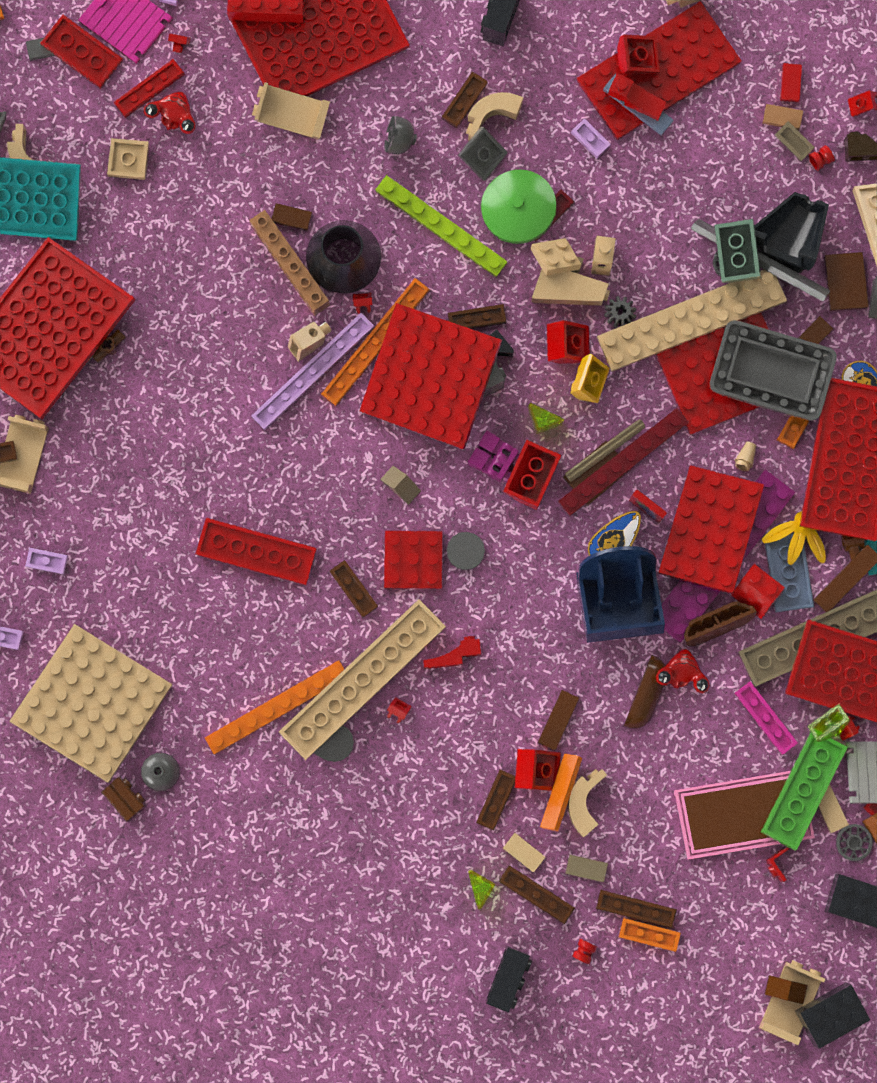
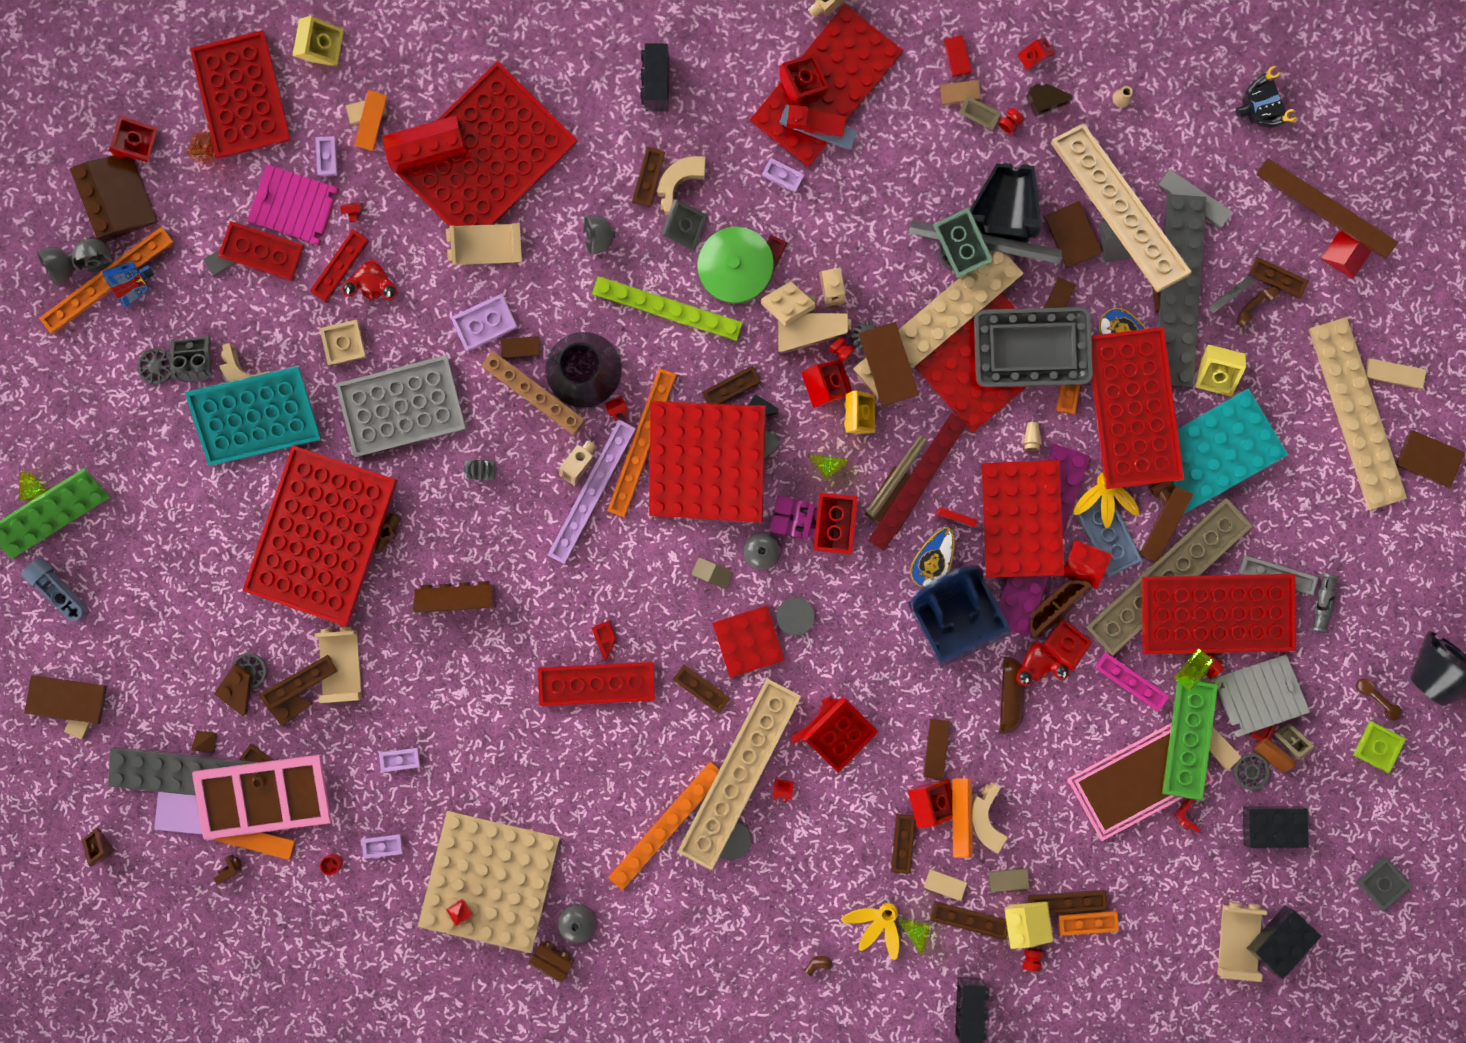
camera: 15 degrees left, 5 degrees up
(53, 719) = (459, 912): none -> red tile
(150, 427) = (454, 598): none -> reddish brown slope
(161, 234) = (401, 406): none -> light grey plate
(215, 315) = (480, 469): none -> dark grey gear
(265, 183) = (484, 322): none -> lavender tile
(278, 511) = (605, 638): none -> red tile
(377, 885) = (816, 963): none -> reddish brown arm
(451, 866) = (881, 921): none -> yellow plant
(454, 488) = (759, 561): none -> dark grey cylinder
(471, 673) = (840, 734): none -> red plate
(591, 915) = (1028, 924): none -> light yellow slope
(592, 316) = (841, 349): none -> red wheel
(631, 342) = (888, 364): none -> reddish brown tile
(715, 661) = (1067, 644): none -> red tile
(785, 989) = (1232, 932): reddish brown slope -> none

